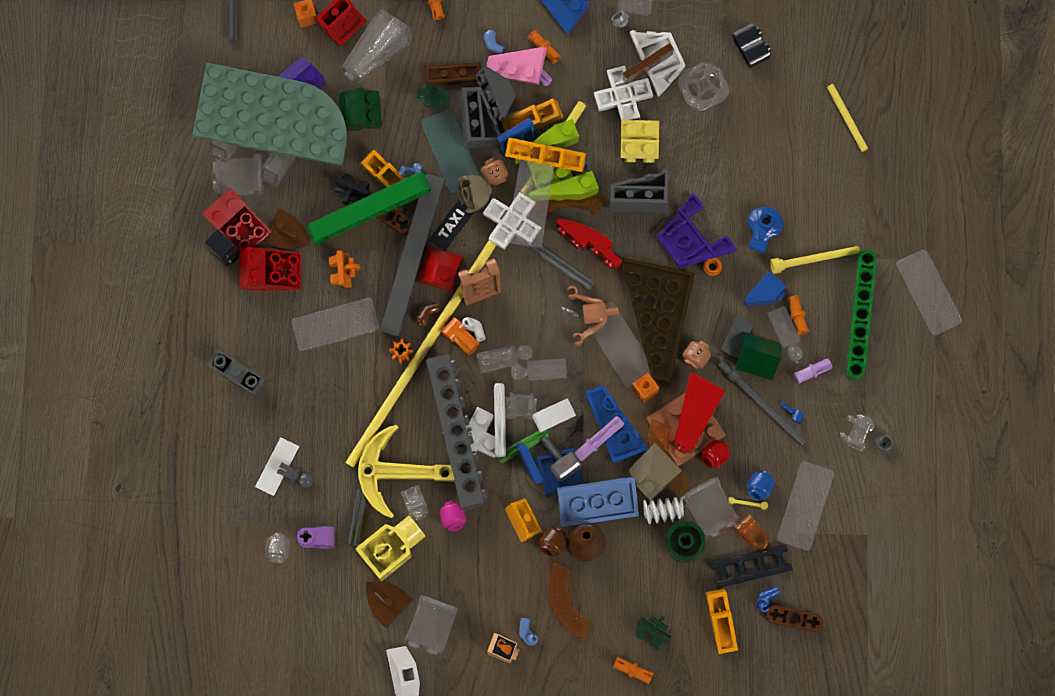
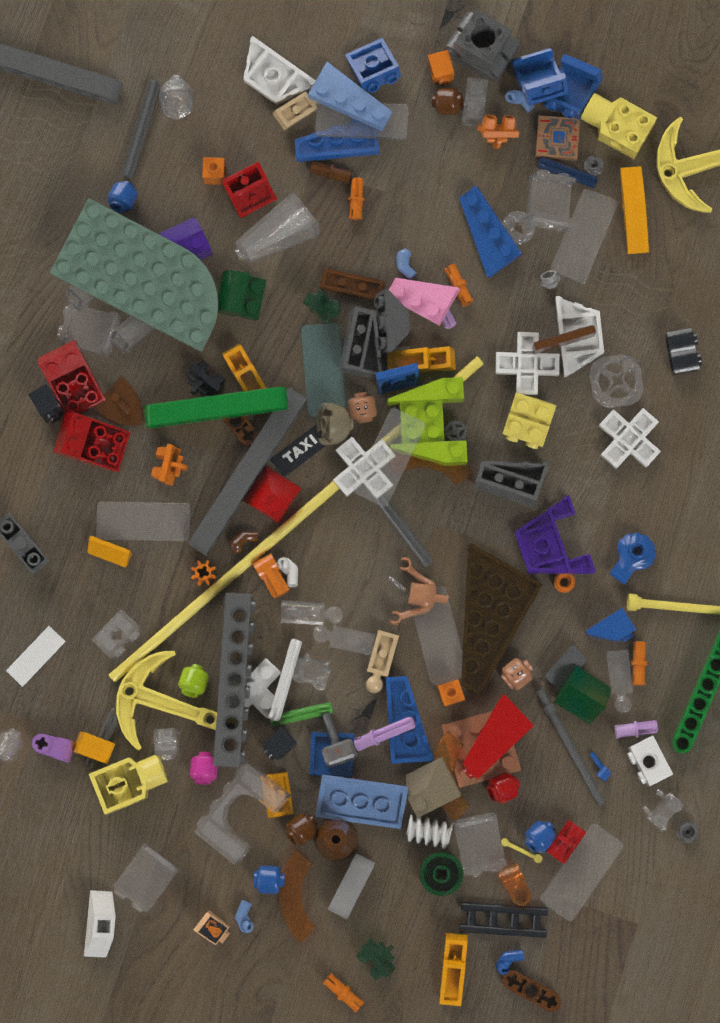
camera: 15 degrees right, 5 degrees up
(233, 56) = (122, 196): none -> blue head
(305, 479) = (59, 680): dark grey pin -> none
(313, 357) = (109, 551): none -> light orange slope
(342, 414) = (118, 623): none -> clear brick
(351, 526) = (93, 747): none -> light orange slope
(386, 601) = (107, 836): reddish brown shield -> none
(406, 171) = (273, 381): medium blue arm -> none
(420, 445) = (193, 681): none -> lime head
(477, 561) = (215, 826): none -> clear arch
(482, 284) = (307, 532): nougat hinge -> none
(512, 474) = (279, 744): none -> black brick
(528, 462) = (300, 738): blue tile -> none
(538, 593) = (269, 879): none -> blue head
(545, 154) = (421, 408): light orange slope -> none
(553, 415) = (344, 692): white slope -> none
(576, 378) = (381, 660): none -> tan plate
(584, 236) = (437, 508): red slope -> none
(611, 577) = (351, 886): none -> light grey beam
(729, 130) = (629, 438): none -> white plate
(783, 482) = (566, 842): none -> red hips
(830, 382) = (660, 768): none -> white brick

